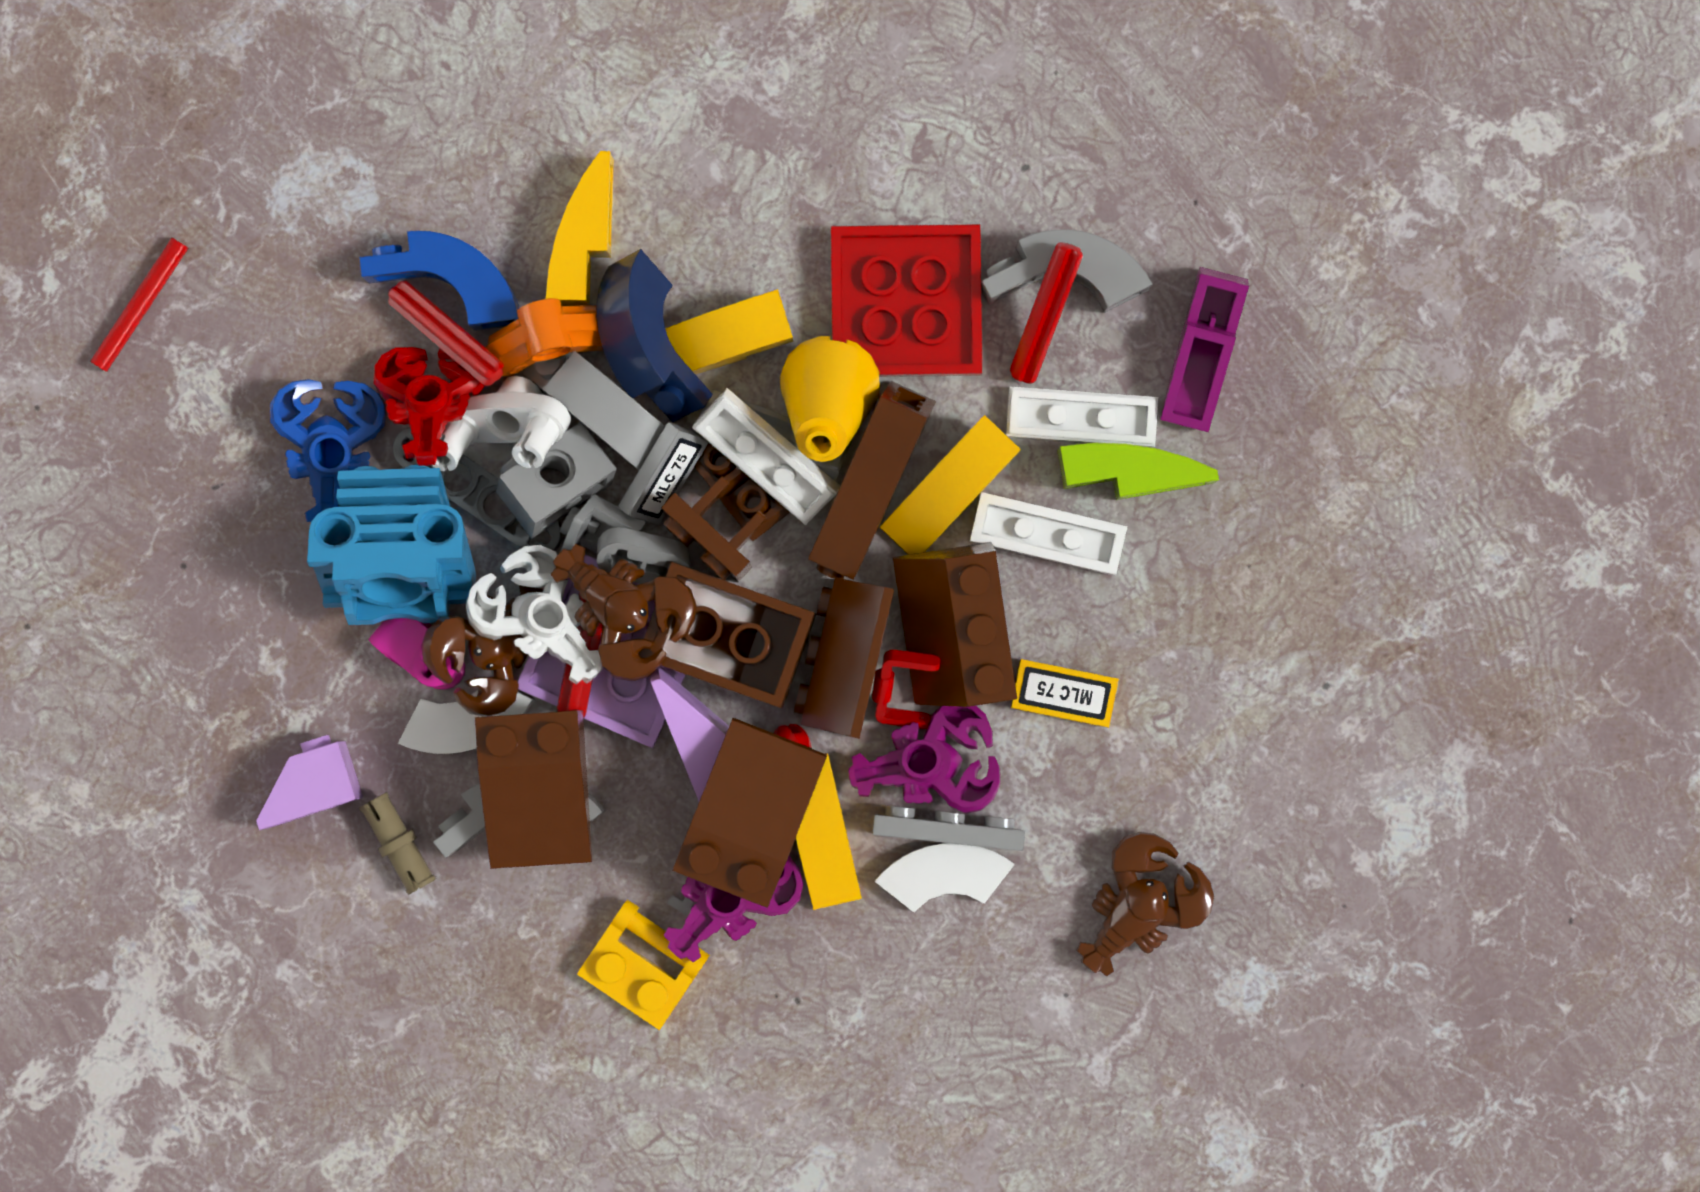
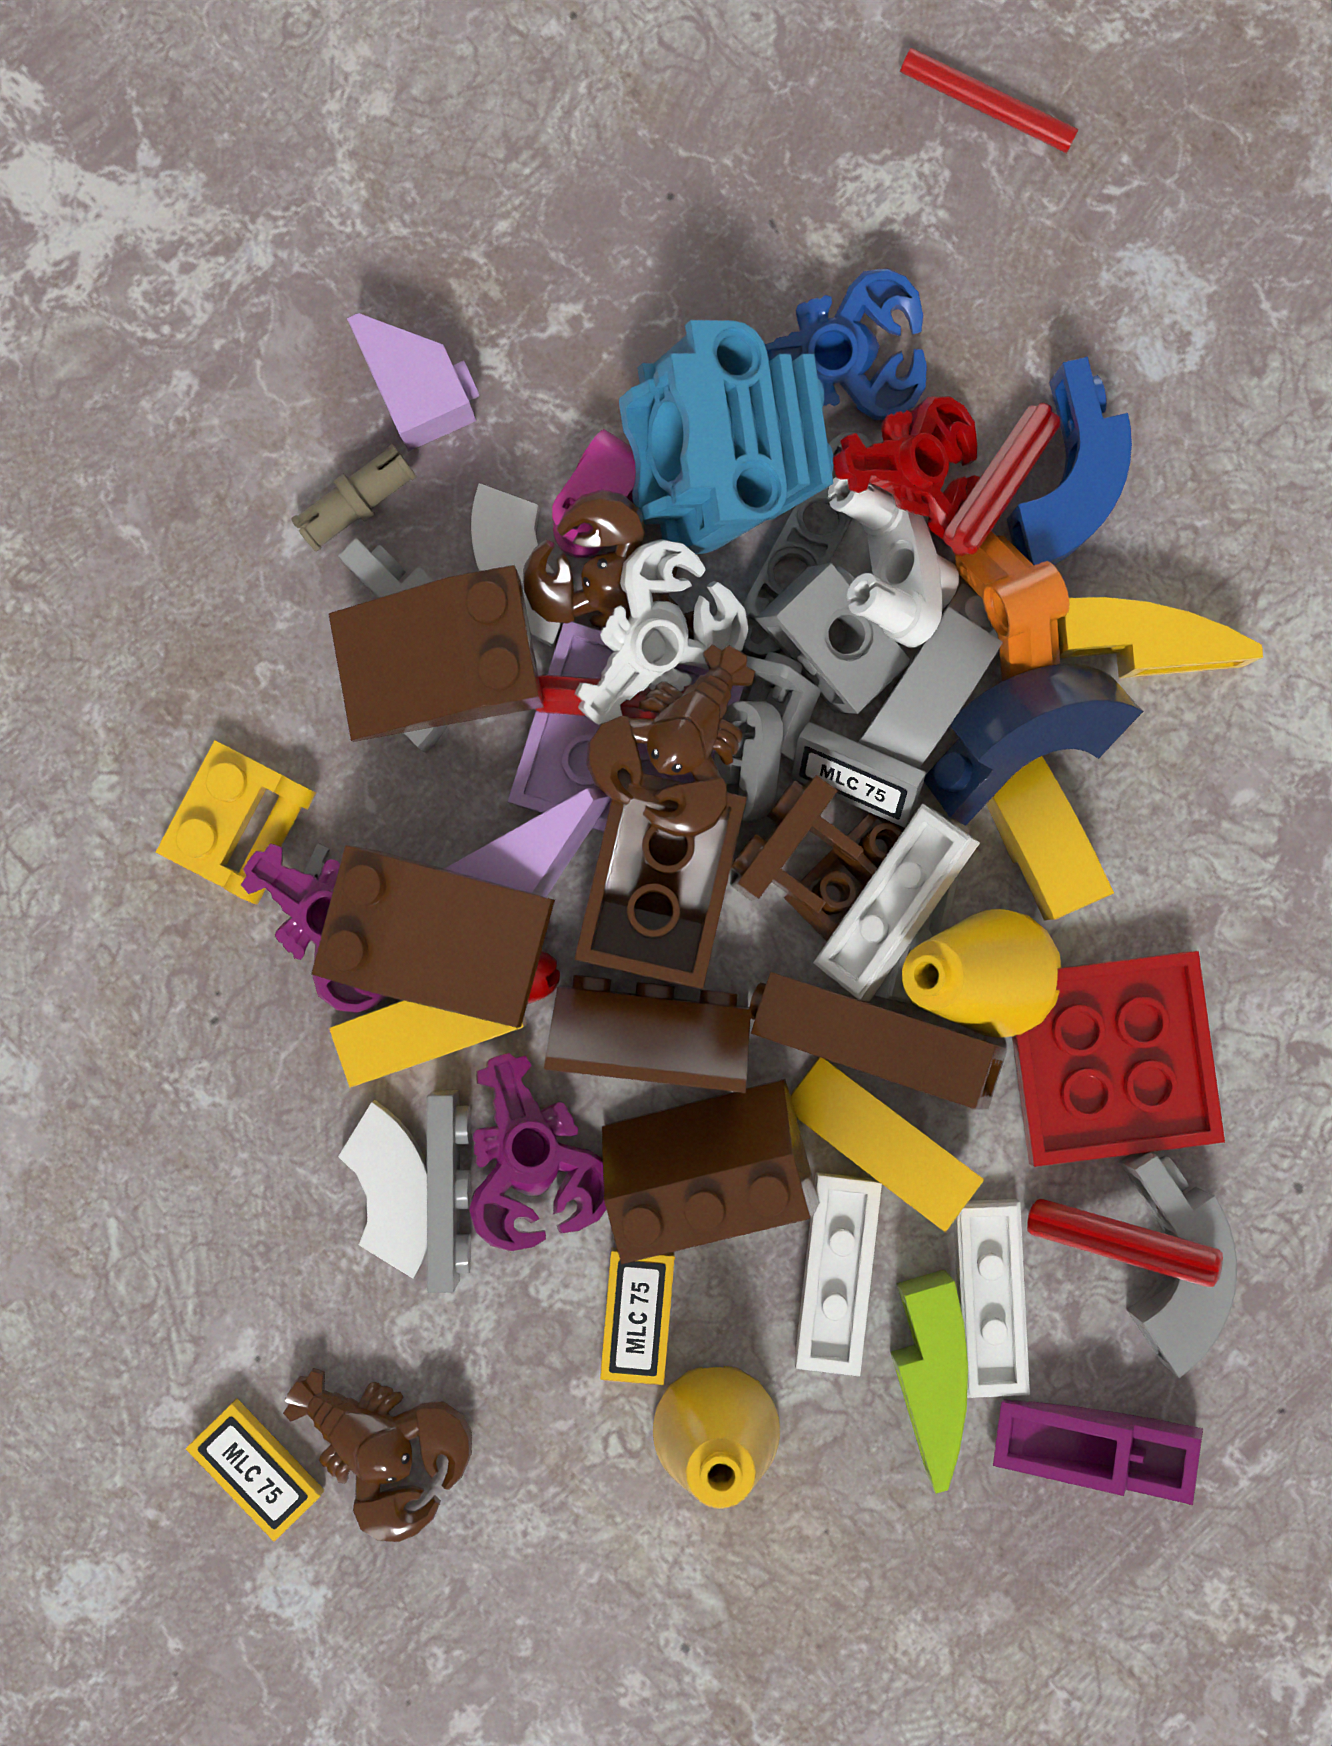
camera: 80 degrees right, 0 degrees up
(884, 684) = (610, 1087): red piece -> none
(1139, 645) = (716, 1433): none -> yellow cone
(1149, 1004) = (255, 1469): none -> tile

